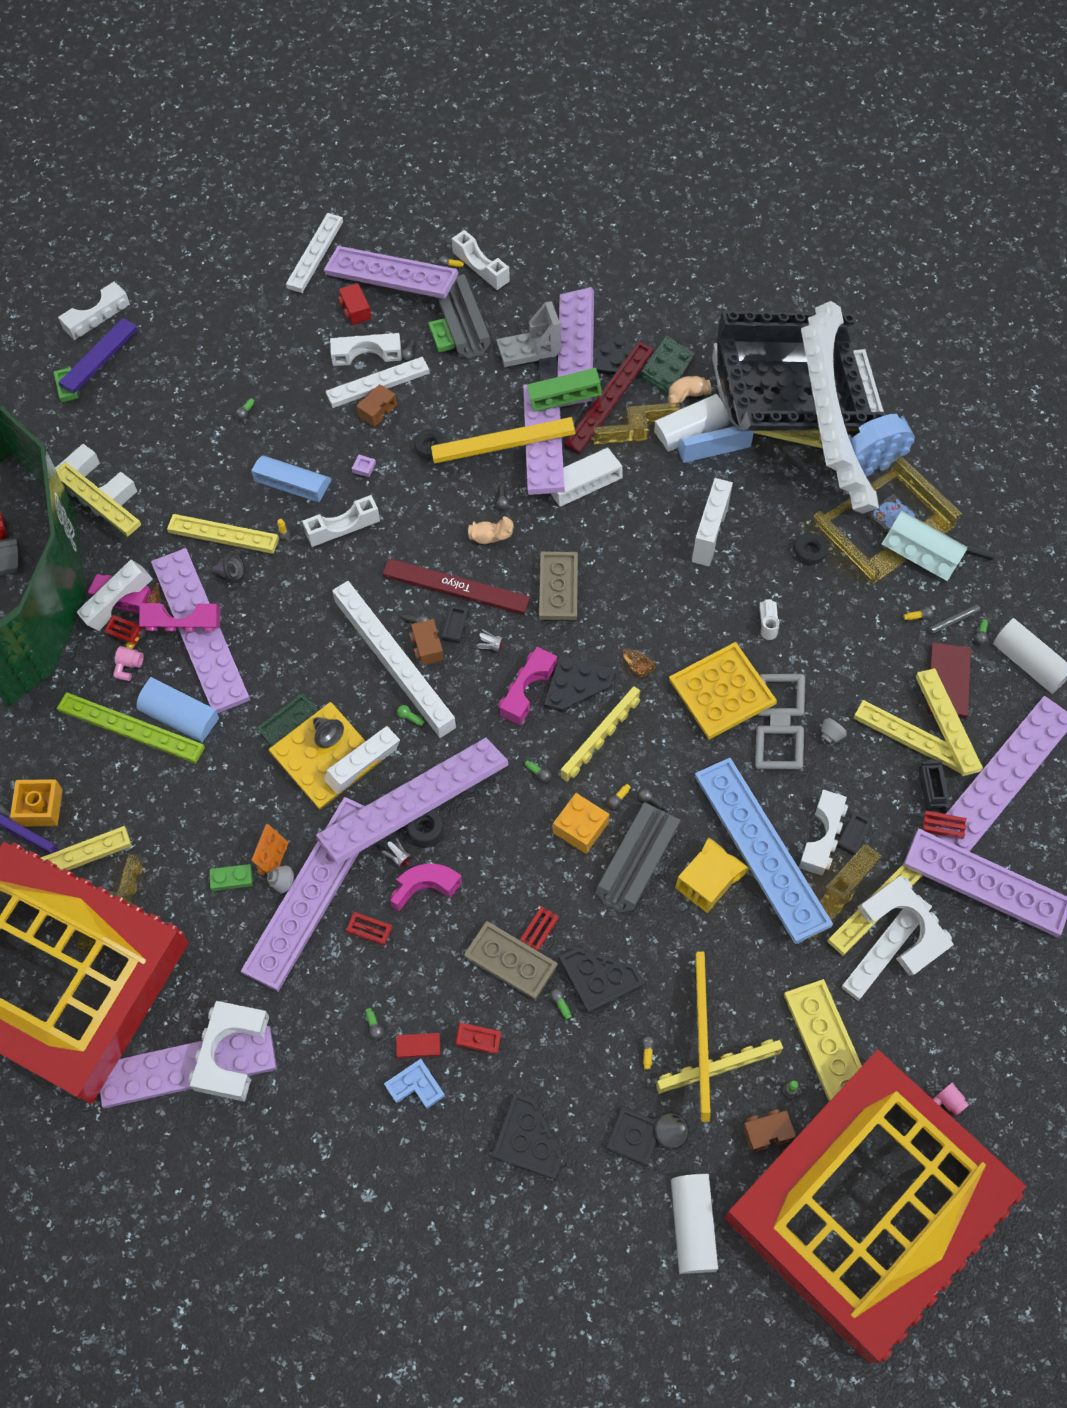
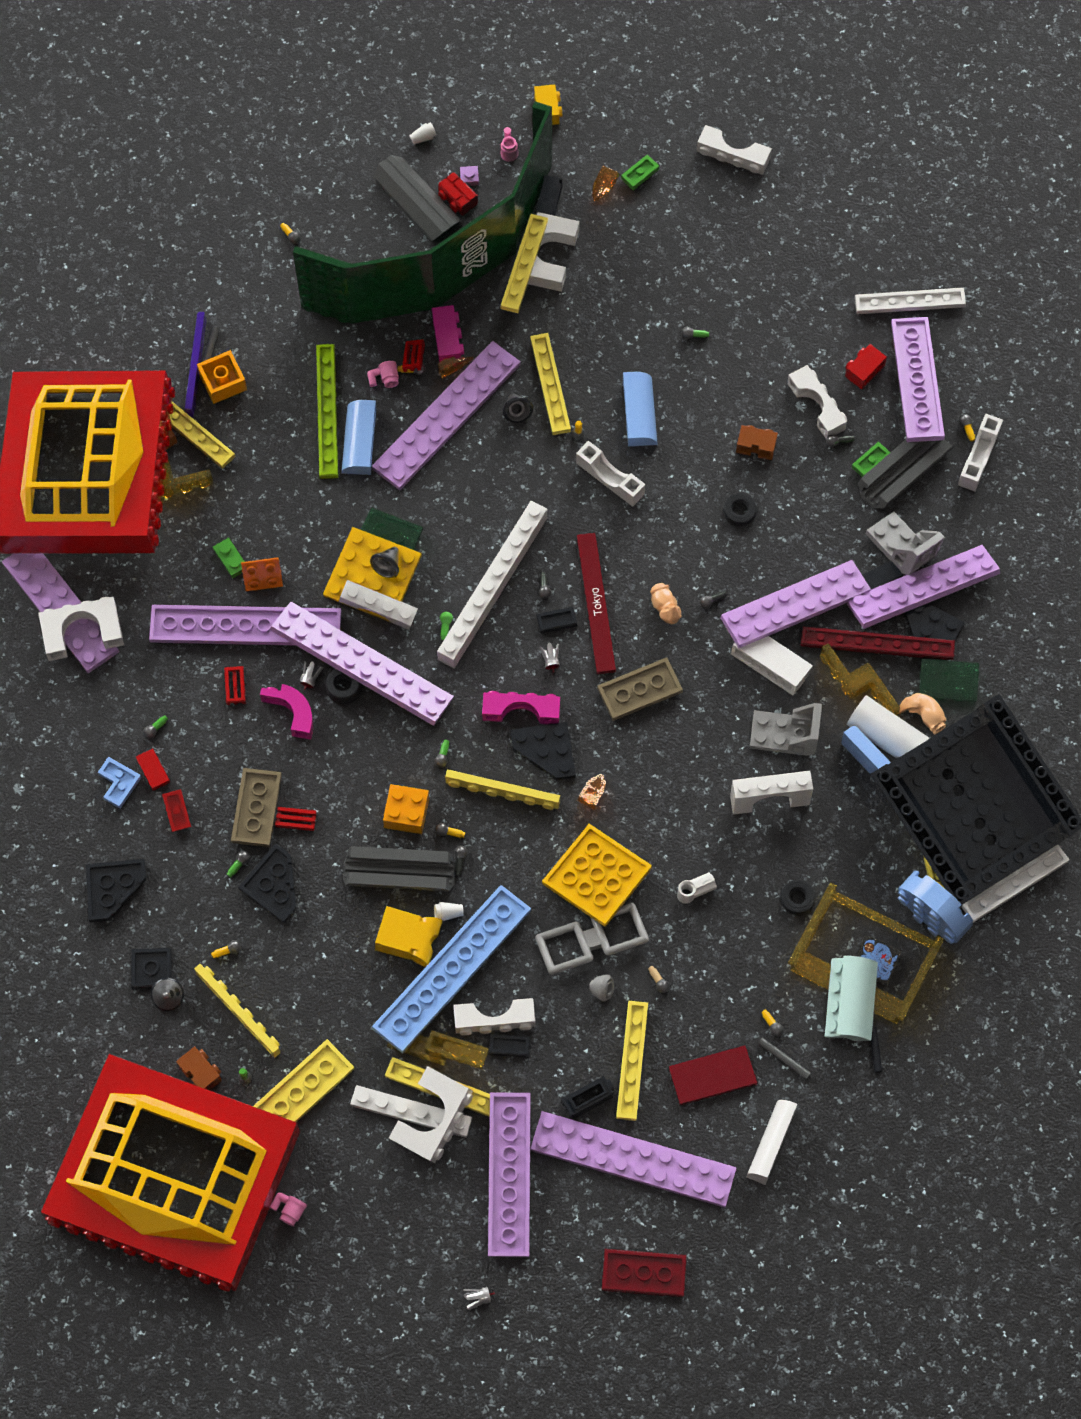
camera: 65 degrees right, 5 degrees up
(56, 414) = (605, 180): none -> clear orange plate
(98, 355) = (685, 181): dark purple tile -> none
(129, 579) = (455, 333): white arch -> none
(155, 615) = (433, 373): dark pink arch -> none
(281, 878) = (243, 594): light grey cone -> none
(363, 466) = (683, 464): lavender plate -> none
(387, 378) = (787, 431): white plate -> none
(427, 643) = (525, 601): dark orange brick -> none
(503, 440) = (768, 569): yellow tile -> none
(564, 389) = (852, 596): bright green brick -> none
(660, 487) = (786, 732): none -> light grey bracket
(694, 1224) = (99, 1043): white brick -> none
(699, 832) = (447, 911): none -> white cone
(702, 1037) = (253, 982): yellow tile -> none
(837, 448) = (900, 858): white arch -> none
(848, 684) = (662, 985): none -> piece
(944, 817) = (545, 1100): red tile -> none
(948, 722) = (660, 1086): light yellow plate -> none
(981, 636) = (774, 1089): flat silver piece -> none

